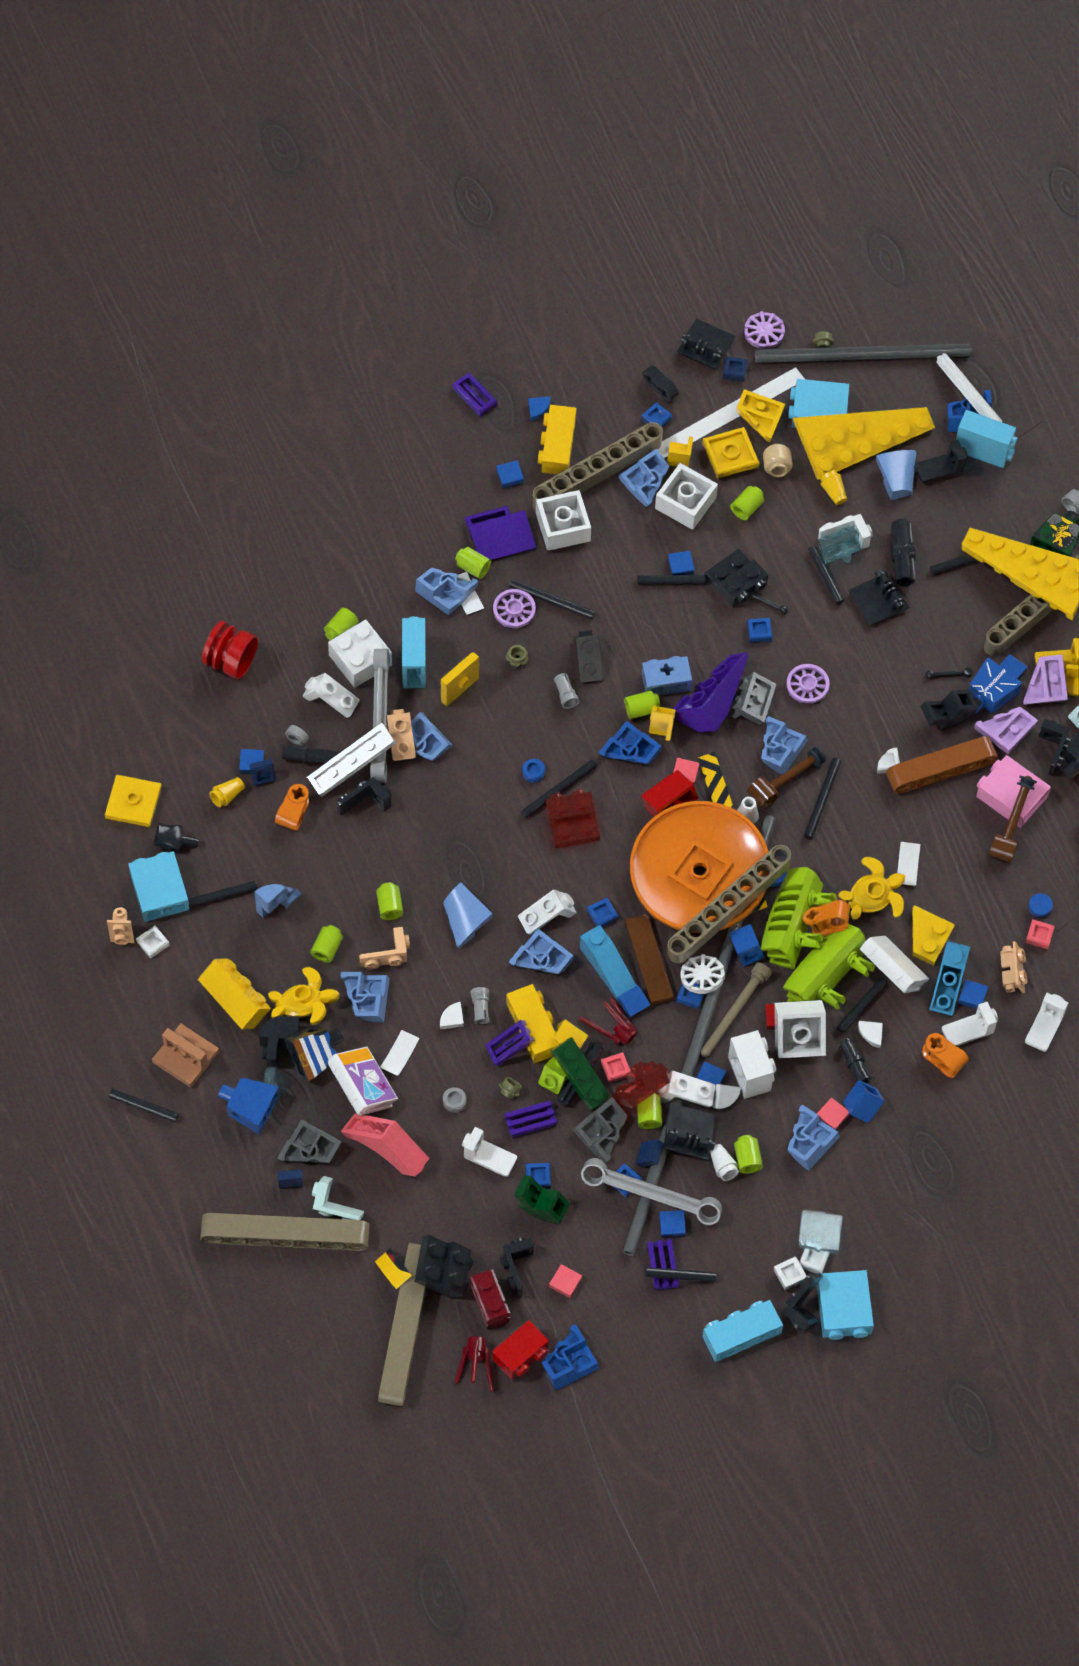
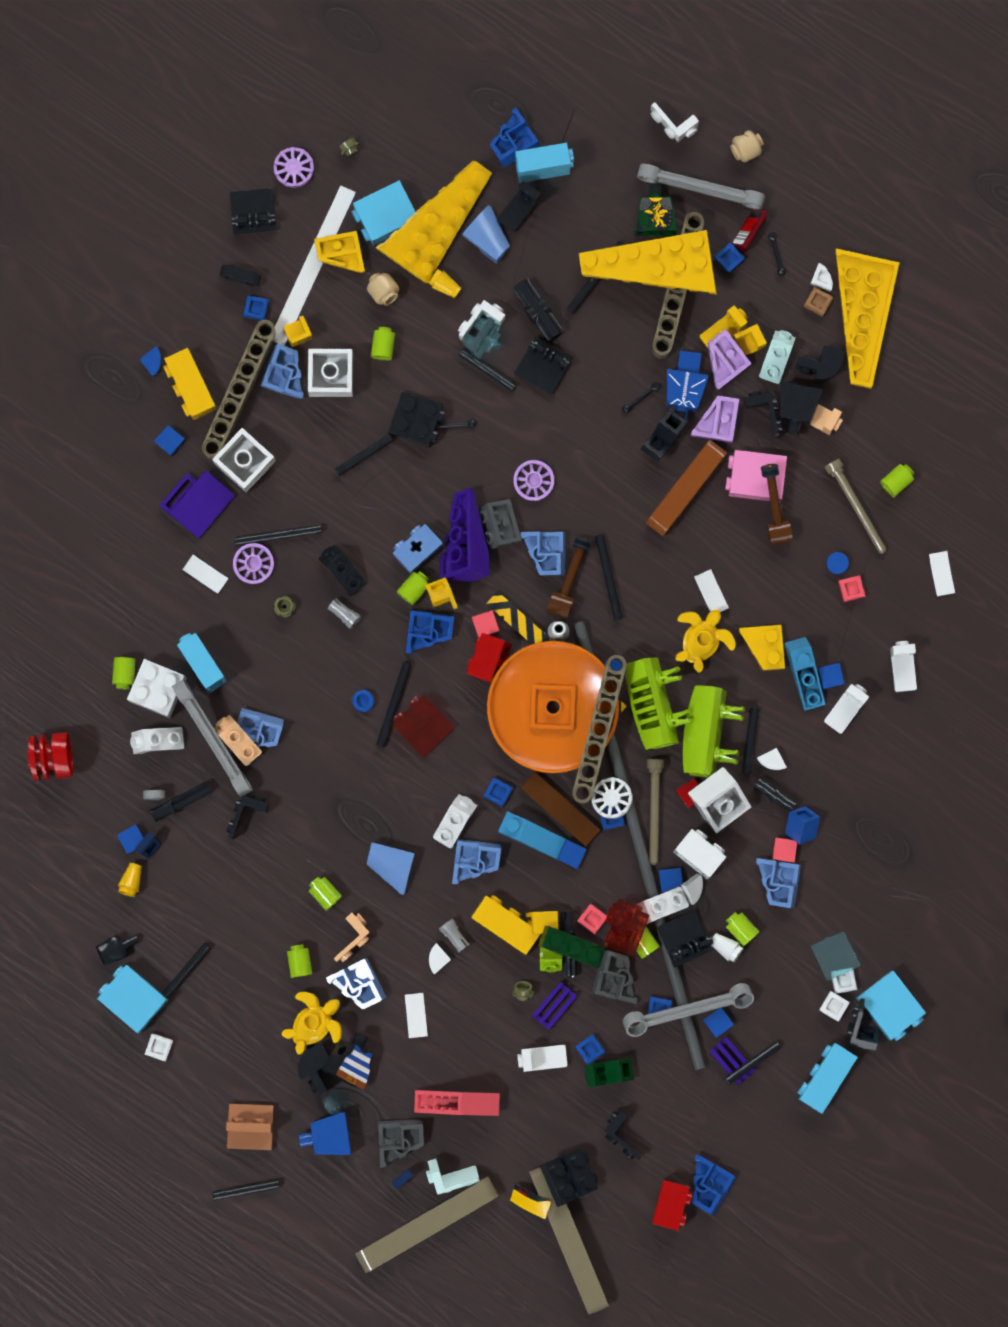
camera: 30 degrees left, 20 degrees up
(119, 928) = (128, 1057): light nougat hinge -> none
(133, 801) = (60, 935): yellow plate -> none
(234, 993) = (256, 1054): yellow brick -> none
(272, 895) = (233, 955): medium blue slope -> none
(293, 807) = (196, 865): orange piece -> none
(351, 759) = (215, 791): white plate -> none
(362, 1081) = (405, 1062): piece -> none
(444, 589) = (186, 583): medium blue slope -> none
(454, 1100) = (484, 1027): light grey tile -> none
(459, 679) = (255, 662): yellow plate -> none
(469, 400) = (73, 377): dark purple tile -> none
(473, 562) = (193, 544): lime brick -> none
(475, 1352) = (636, 1225): dark red plant -> none
(490, 1299) = (620, 1178): dark red brick -> none
(525, 1033) = (507, 943): dark purple tile -> none
(565, 1281) = (666, 1123): coral tile -> none
(624, 1030) = (580, 885): dark red plant -> none
(649, 1153) = (665, 976): dark blue tile -> none
(681, 563) = (363, 435): blue tile -> none
(730, 452) = (339, 304): yellow plate -> none
(735, 369) = (292, 220): dark blue tile -> none
(746, 945) = (630, 749): blue panel -> none
(759, 630) = (464, 455): blue tile -> none
(829, 918) = (683, 691): orange piece -> none
(862, 353) = (389, 137): dark grey axle -> none
(887, 760) = (641, 510): white tile -> none
(894, 964) = (757, 694): white piece -> none
(944, 1055) = (845, 745): orange piece -> none
(966, 387) = (500, 122): white axle -> none
(1016, 976) = (855, 639): light nougat hinge -> none

